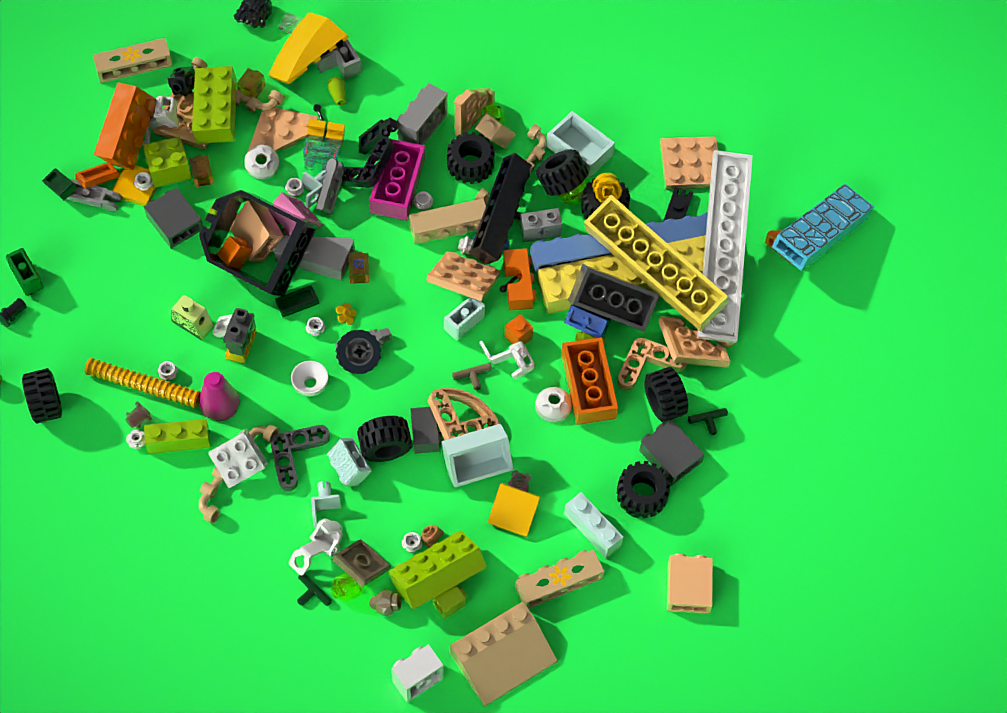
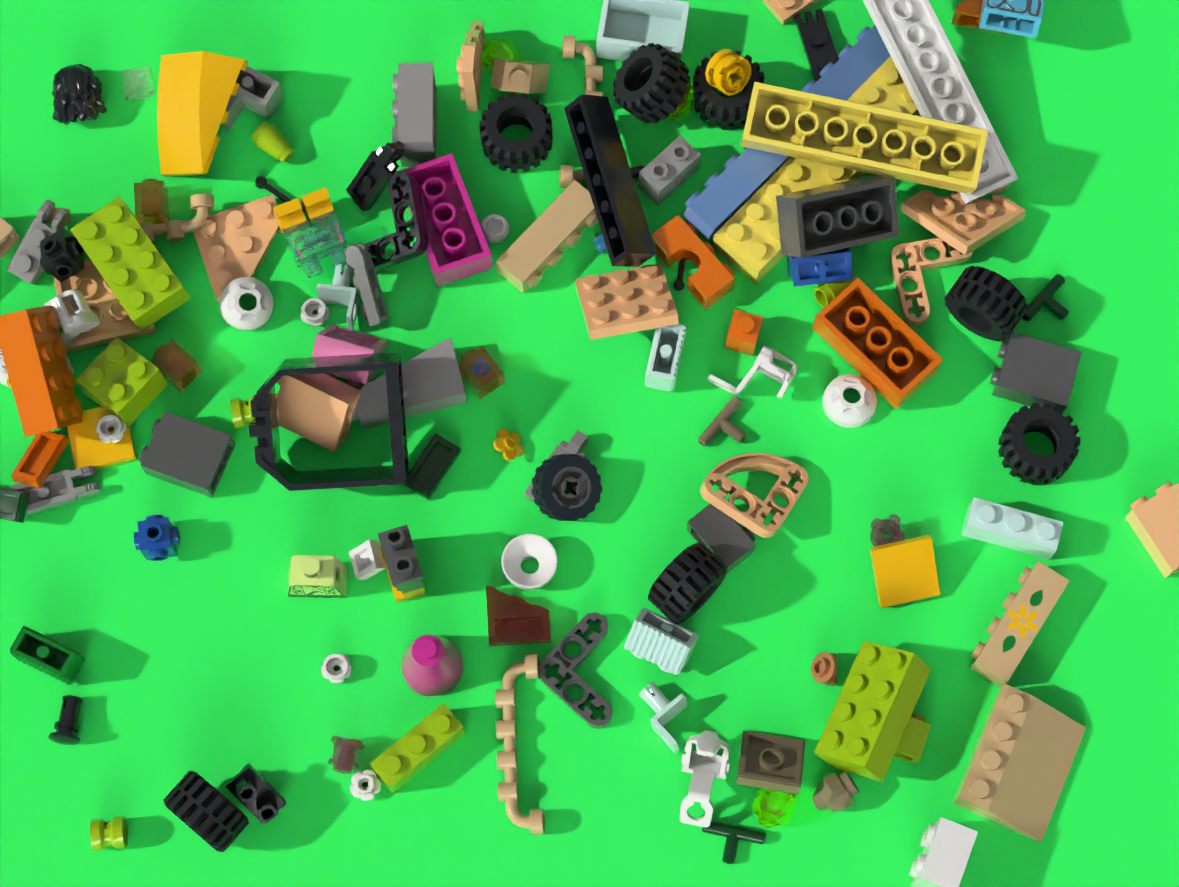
camera: 30 degrees left, 10 degrees up
(75, 405) = (256, 793): none -> black hips
(125, 249) = (163, 545): none -> blue brick
(142, 382) = (316, 705): yellow piece -> none
(190, 57) = (27, 257): none -> light grey hinge
(235, 252) = (310, 452): orange brick -> none
(238, 458) = (522, 729): white bracket -> none
(279, 404) = (515, 621): none -> clear red wing
(315, 321) = (482, 479): white plate -> none
(412, 536) = (816, 689): white plate -> none
(465, 245) = (593, 256): white plate -> none
(477, 455) = (815, 530): light aqua piece -> none

